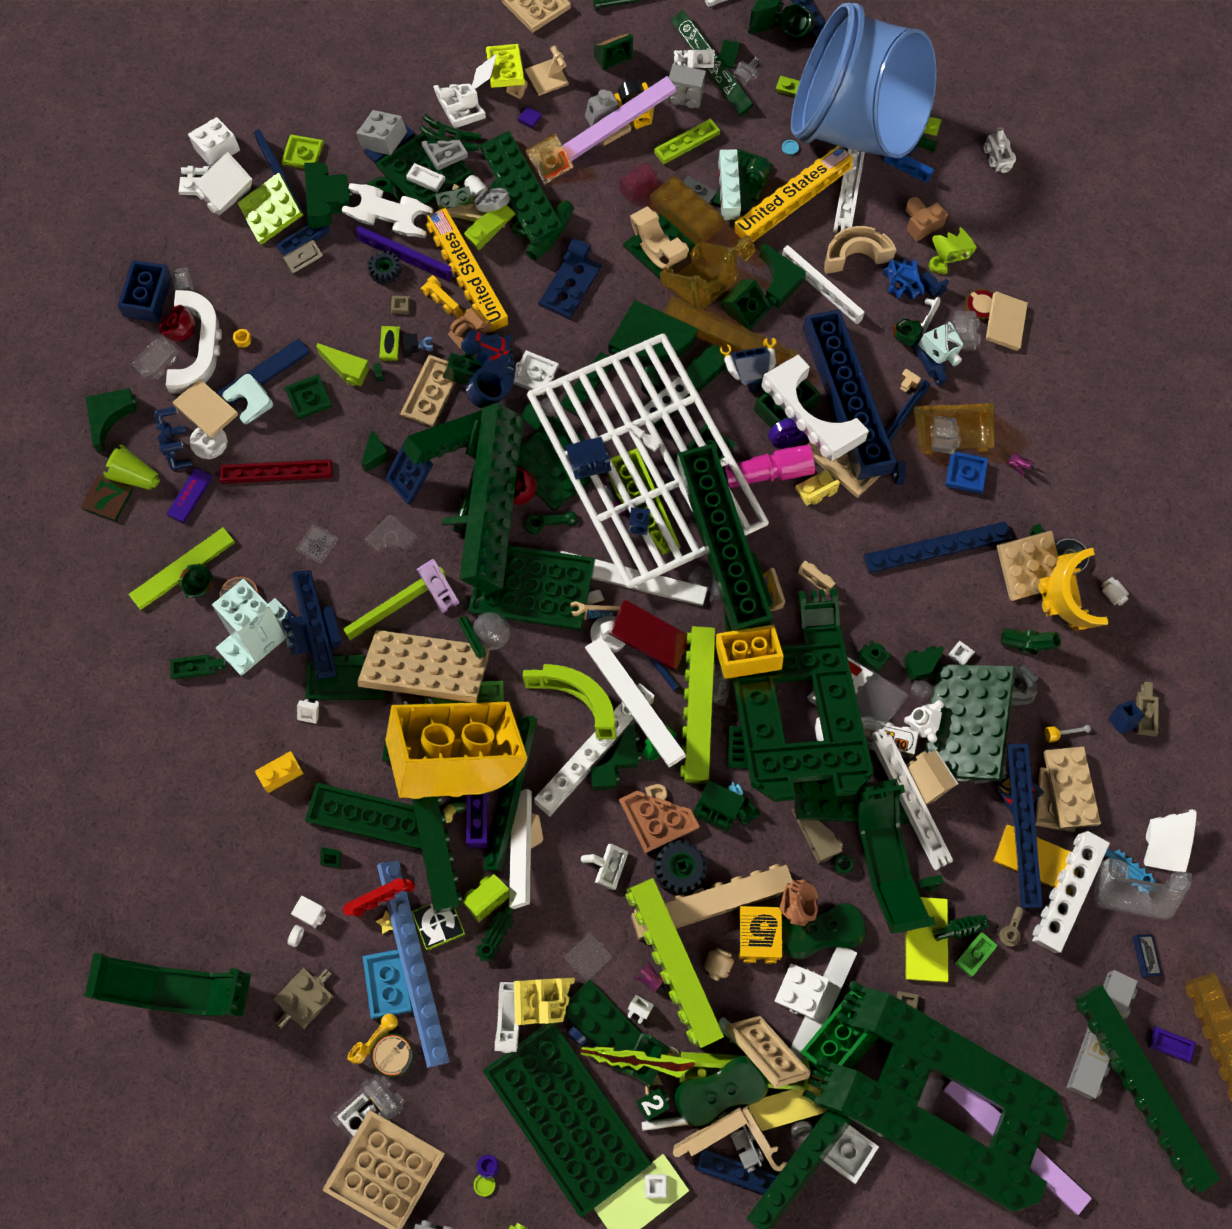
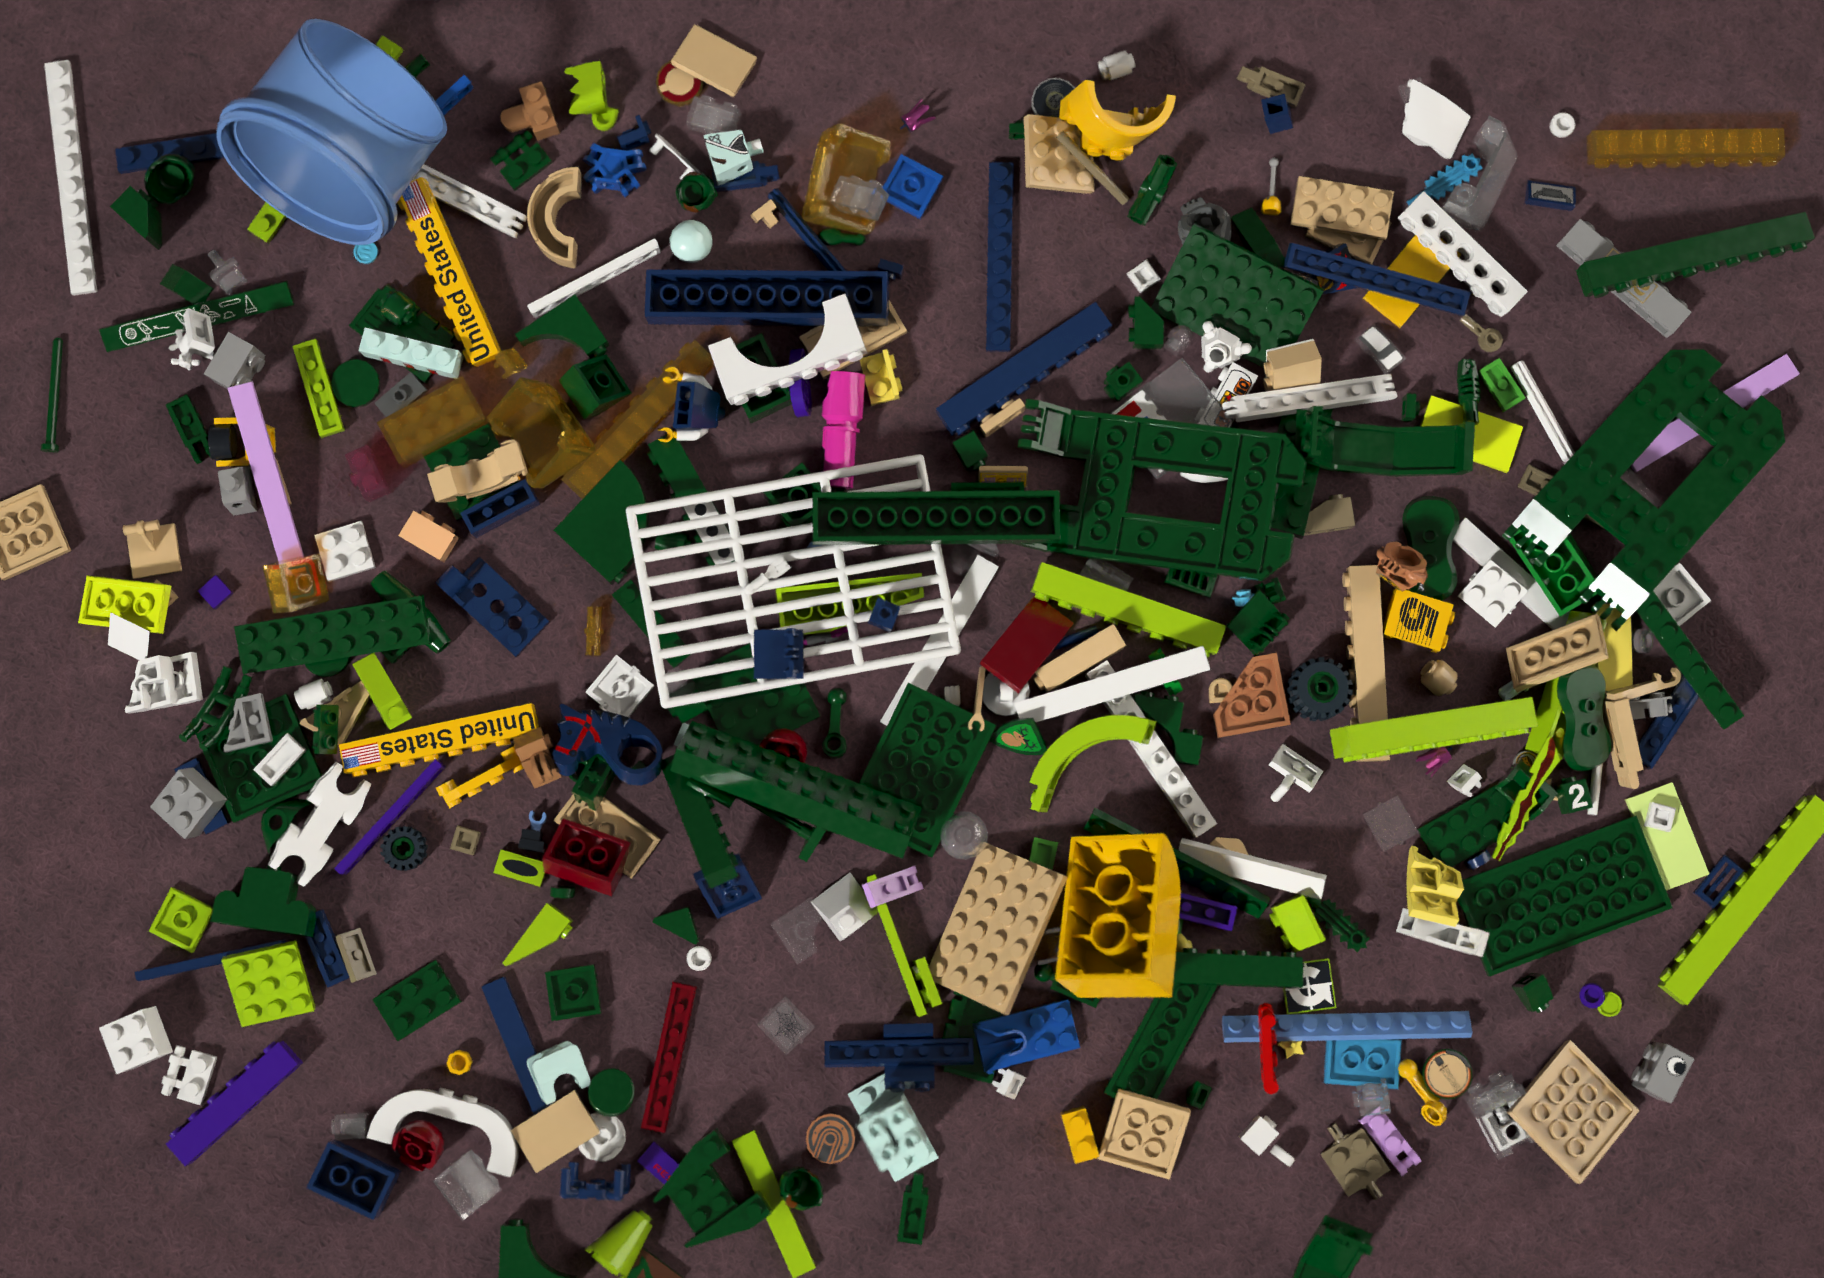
camera: 70 degrees left, 15 degrees up
(178, 515) = (705, 1197): none -> dark green wedge
(184, 210) = (234, 1103): none -> dark purple brick
(223, 184) = (216, 1041): white slope -> none
(241, 437) = (611, 1092): none -> dark green head
(280, 302) = (417, 1000): none -> dark green plate
(289, 820) = (1144, 1133): none -> tan plate
(327, 1022) = (1390, 1141): none -> lavender plate
(348, 713) = (1026, 1035): none -> blue plate
(353, 473) = (699, 958): none -> white tile
(357, 996) = (1372, 1098): none -> clear brick
(364, 635) = (929, 992): none -> lime piece
(407, 378) = (586, 857): none -> dark red slope
(411, 556) = (844, 907): none -> white slope
(472, 637) = (969, 860): dark green axle -> none
(476, 1111) = (1534, 992): none -> dark green slope
(492, 201) = (347, 678): light grey tile -> none
(571, 347) = (593, 631): none -> clear yellow pin
(577, 649) = (1020, 737): none -> shield
(580, 184) = (345, 551): none -> white plate
(606, 229) = (429, 536): none -> light nougat brick
(614, 50) = (140, 446): dark green slope -> none
(638, 264) = (500, 508): none -> dark blue brick
(639, 72) = (188, 425): none -> dark green hinge
(641, 670) = (1079, 659): none -> tan slope
(698, 162) = (355, 383): none -> dark green tile
(749, 651) = (1087, 530): yellow brick -> none
(783, 561) = (970, 451): none -> dark green brick
(843, 864) = (1362, 500): dark green tile -> none
(859, 584) = (1024, 368): none -> dark blue brick
(871, 336) = (691, 241): none -> light aqua piece
(885, 225) = (524, 166): none -> dark green plate
(910, 432) = (834, 237): none -> dark green piece
(969, 993) = (1543, 411): none -> white axle
(970, 848) = (1380, 348): none -> slope
(1023, 727) = (1257, 237): none -> dark green slope
(1030, 591) = (1092, 167): none -> dark tan bar
(1172, 1044) = (1651, 205): dark purple tile -> none
(1209, 951) = (1562, 125): none -> white tile

